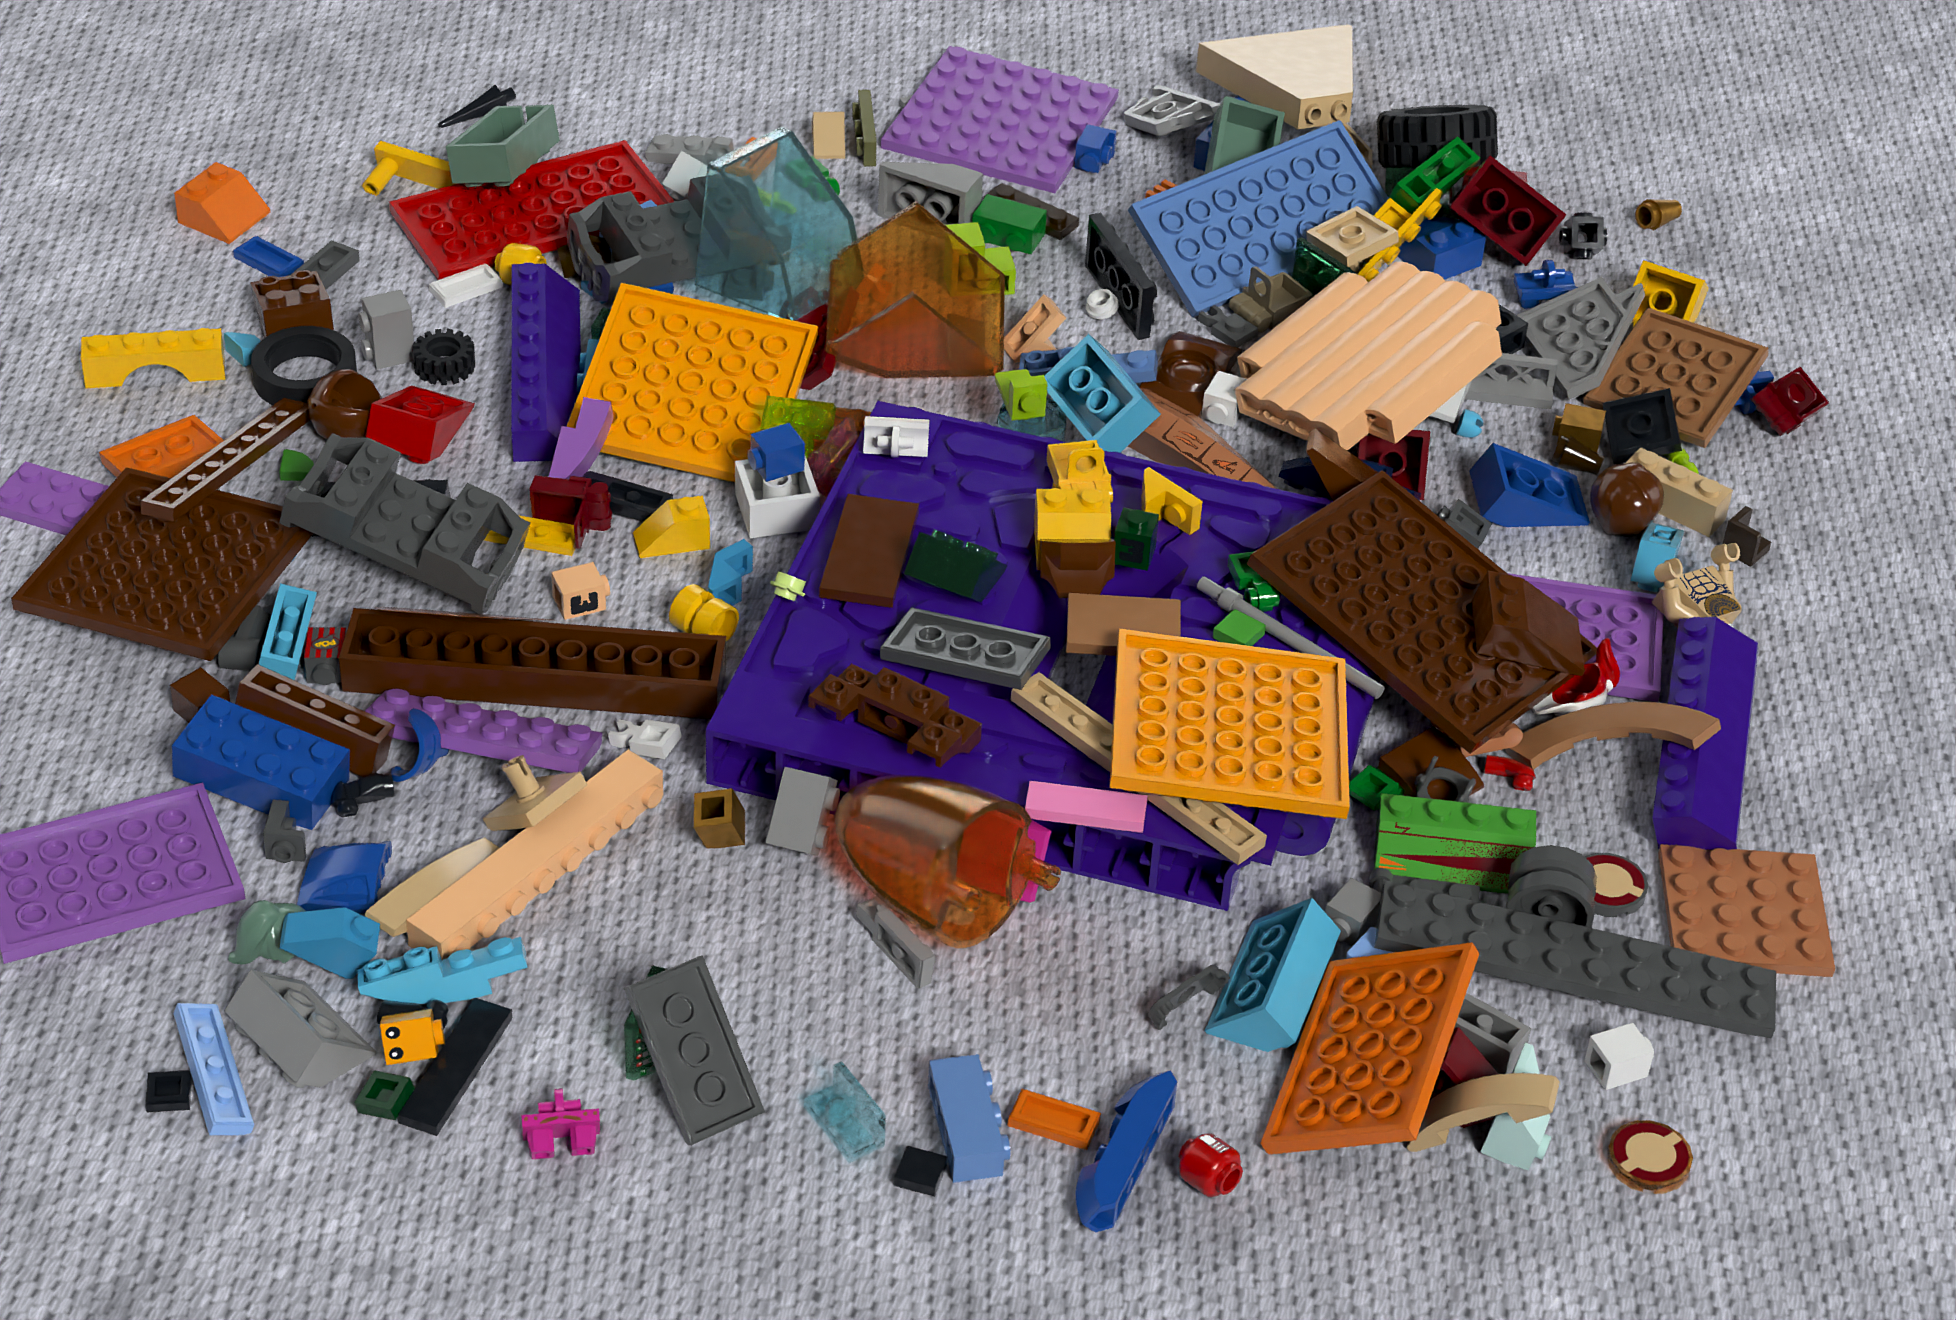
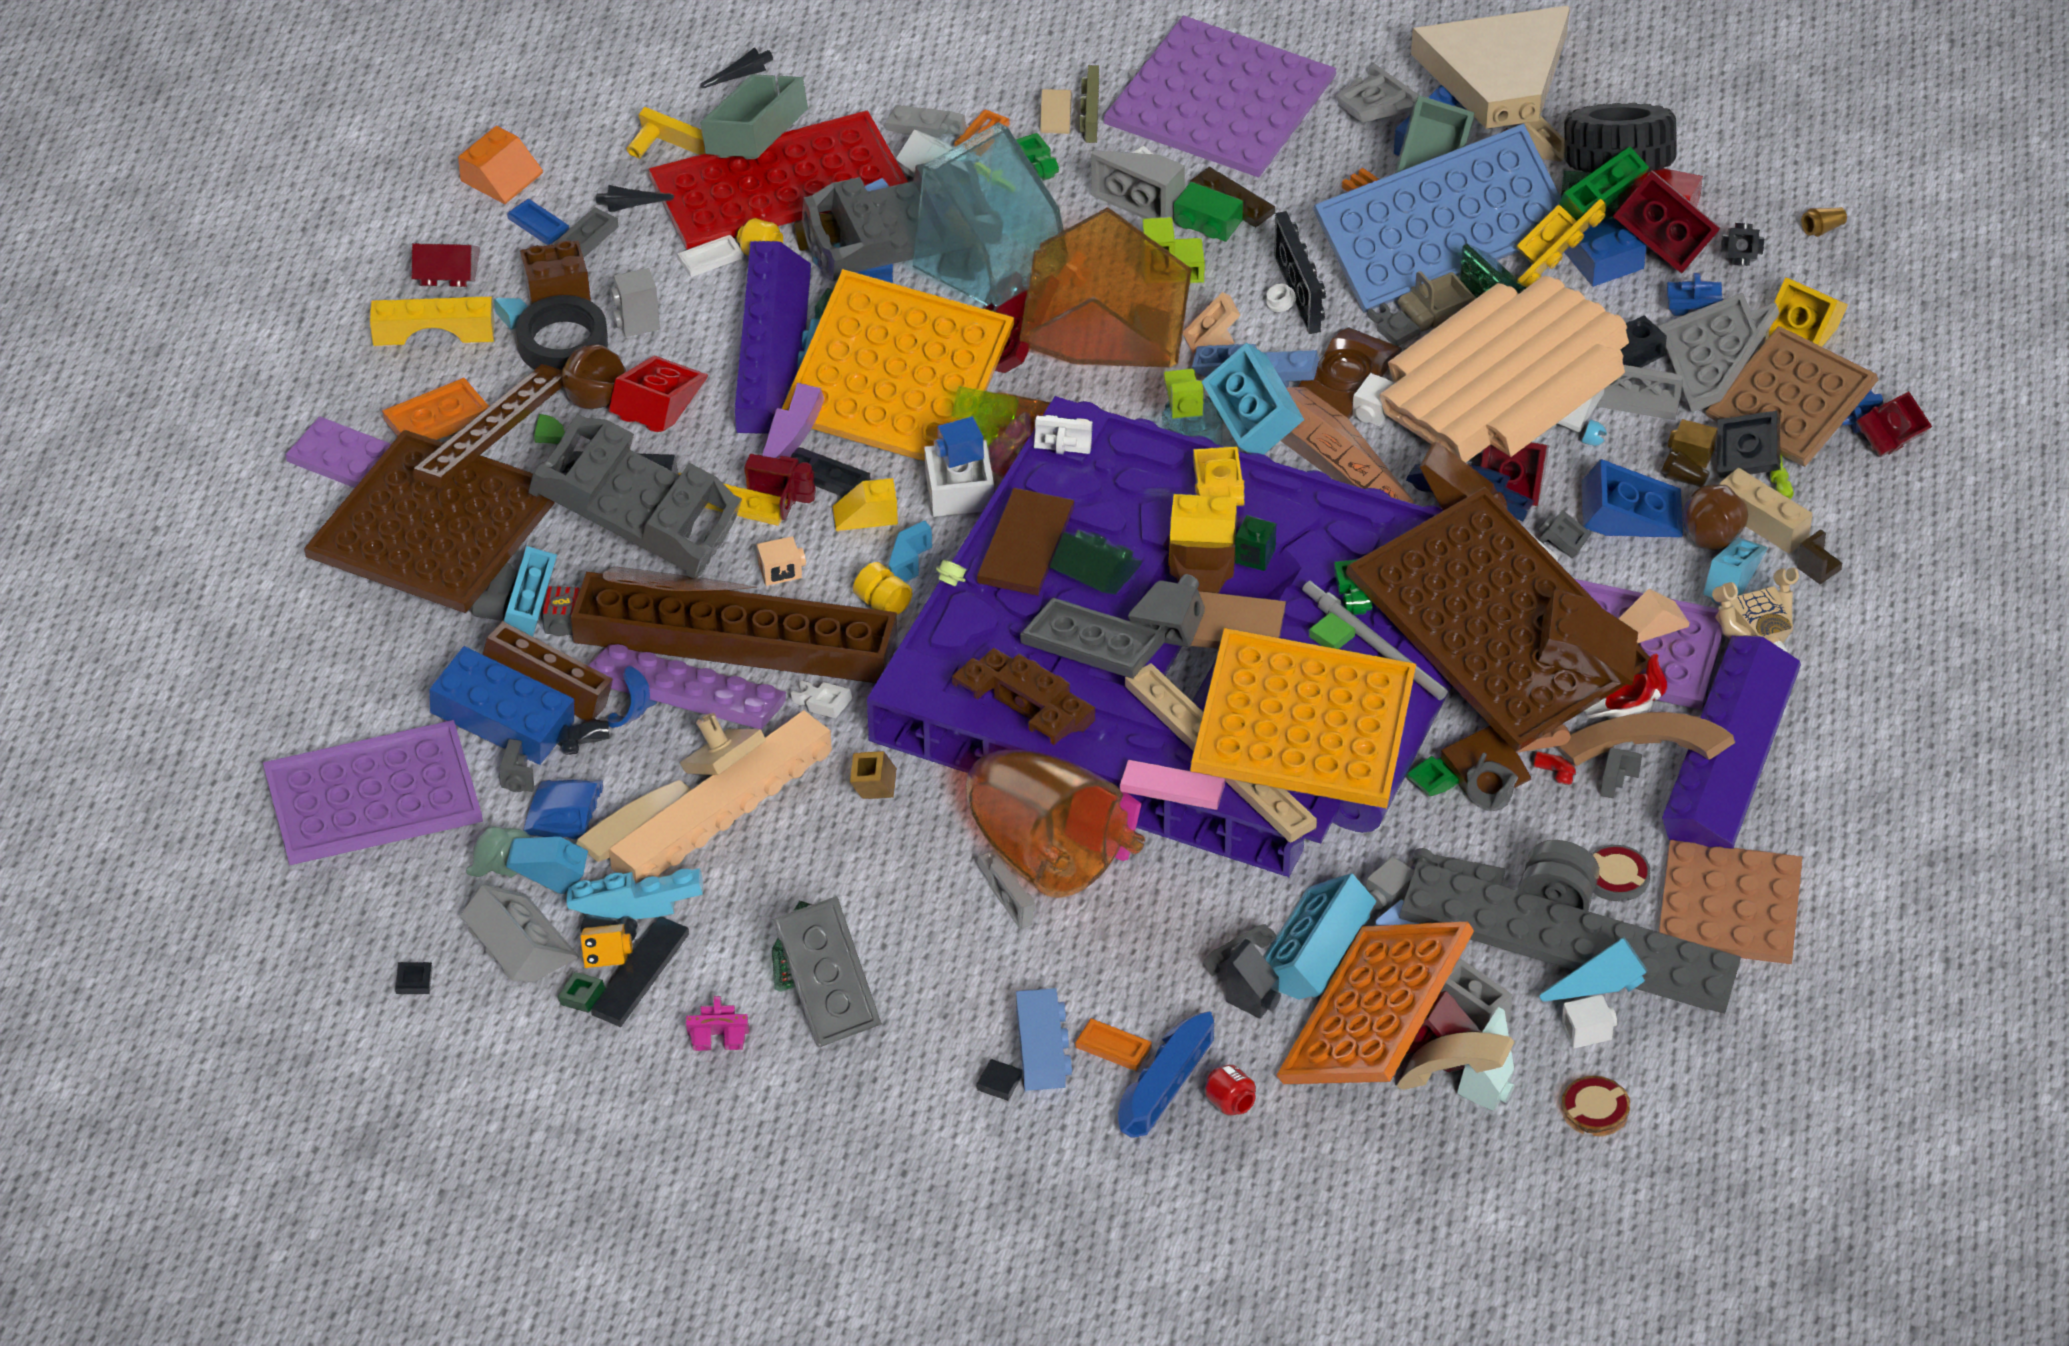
camera: 10 degrees right, 5 degrees up
(164, 299) = (444, 263): none -> dark red slope
(193, 691) = (451, 638): reddish brown brick -> none
(213, 1069) = (449, 962): light blue tile -> none
(361, 231) = (622, 198): none -> black piece
(432, 366) = (684, 340): black tyre -> none
(803, 811) = (942, 773): light grey brick -> none
(848, 1115) = (946, 1032): clear light blue panel -> none
(1054, 611) = (1172, 610): none -> dark grey torso
(1095, 148) = (1301, 133): blue brick -> none
(1170, 502) = (1290, 507): yellow slope -> none
(1213, 1032) = (1251, 981): none -> black slope
(1353, 237) = (1517, 243): tan tile -> none
(1451, 840) = (1487, 826): bright green slope -> none
(1583, 767) = (1618, 765): none -> dark grey bracket
(1589, 602) = (1654, 616): none -> light nougat slope
(1632, 996) = (1605, 973): none -> medium azure slope

